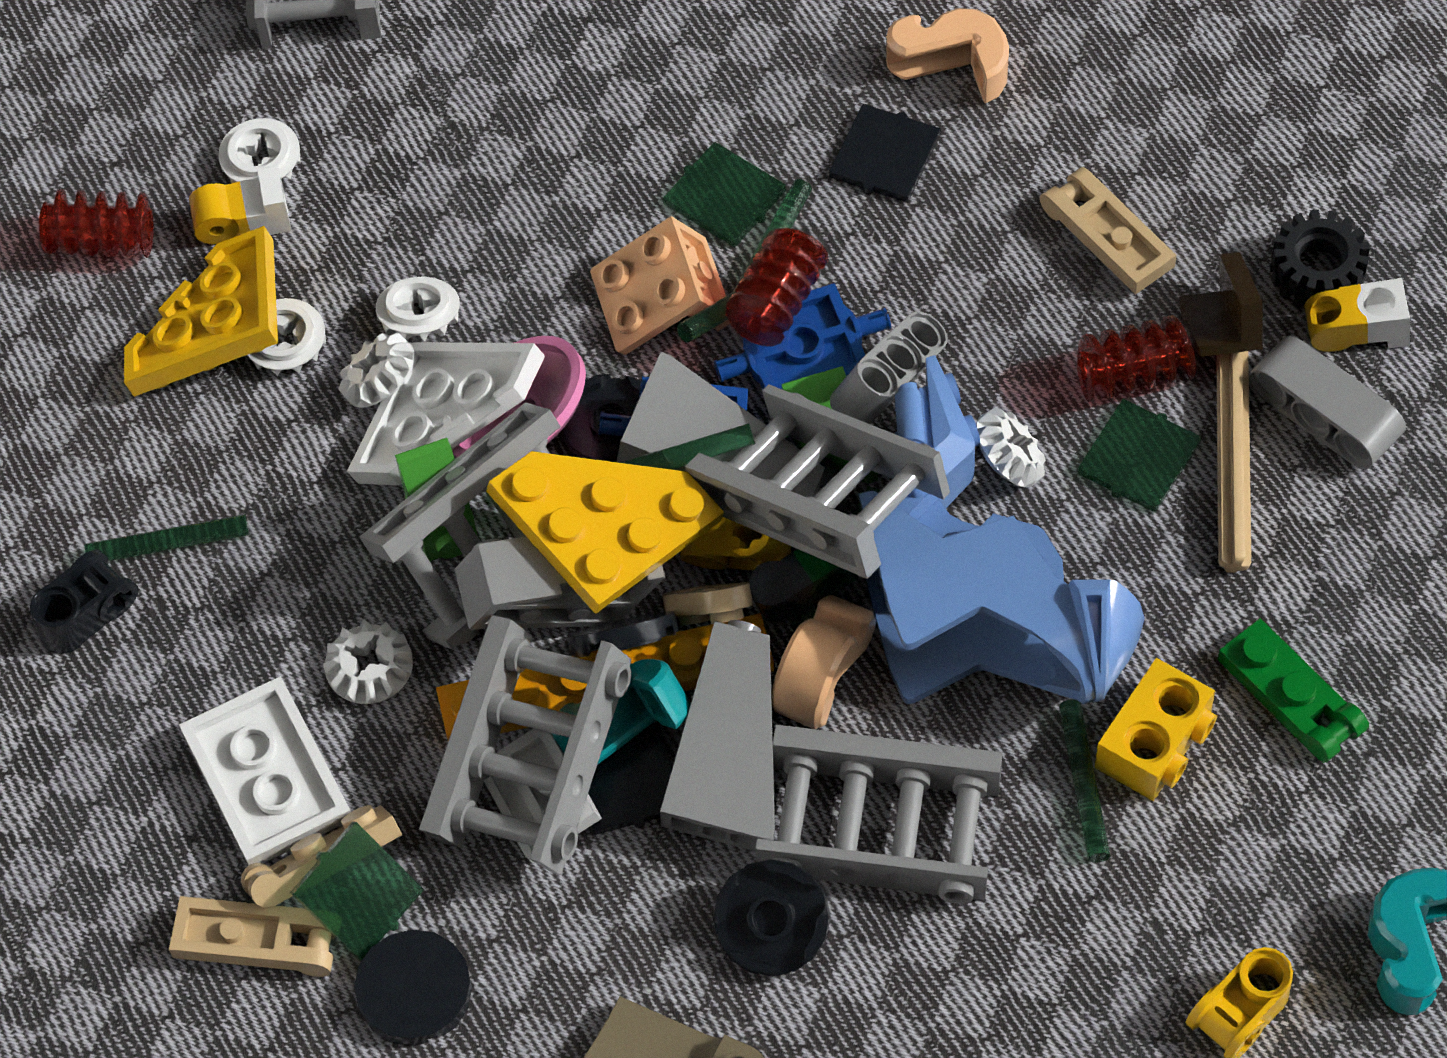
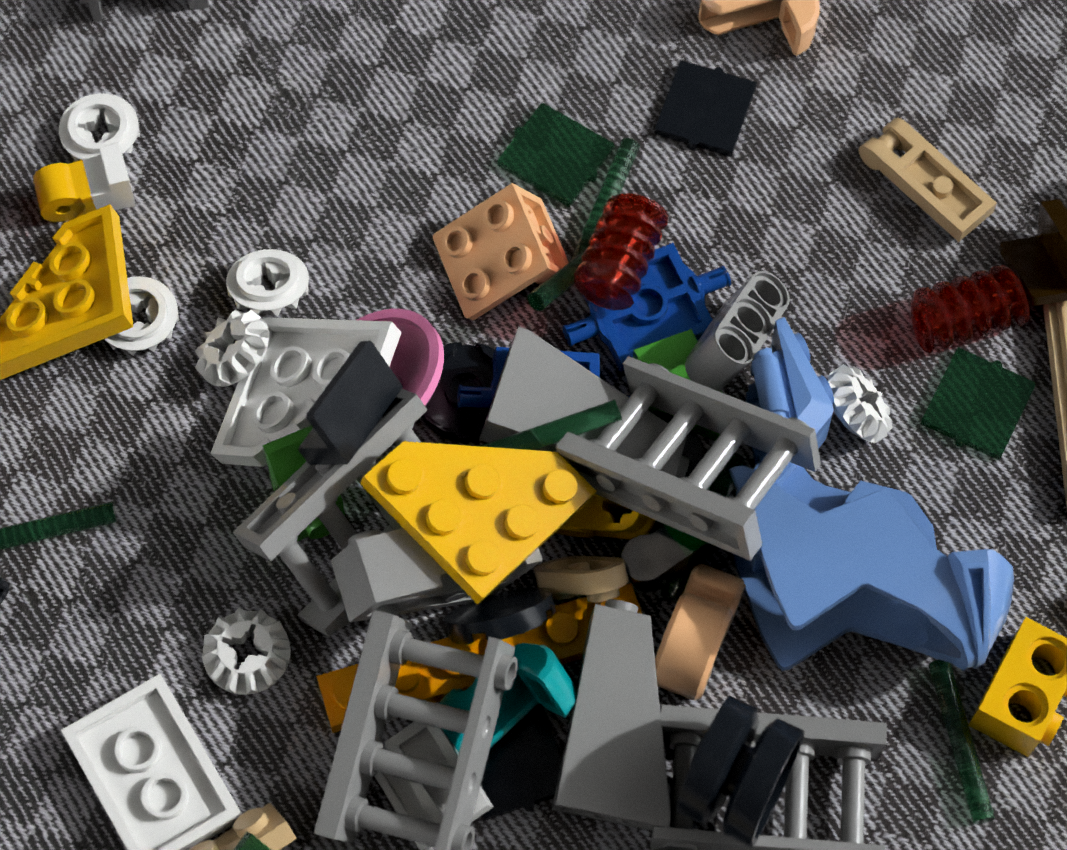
camera: 10 degrees left, 5 degrees up
(482, 417) = (349, 407): none -> black panel
(842, 782) = (732, 768): none -> black wheel

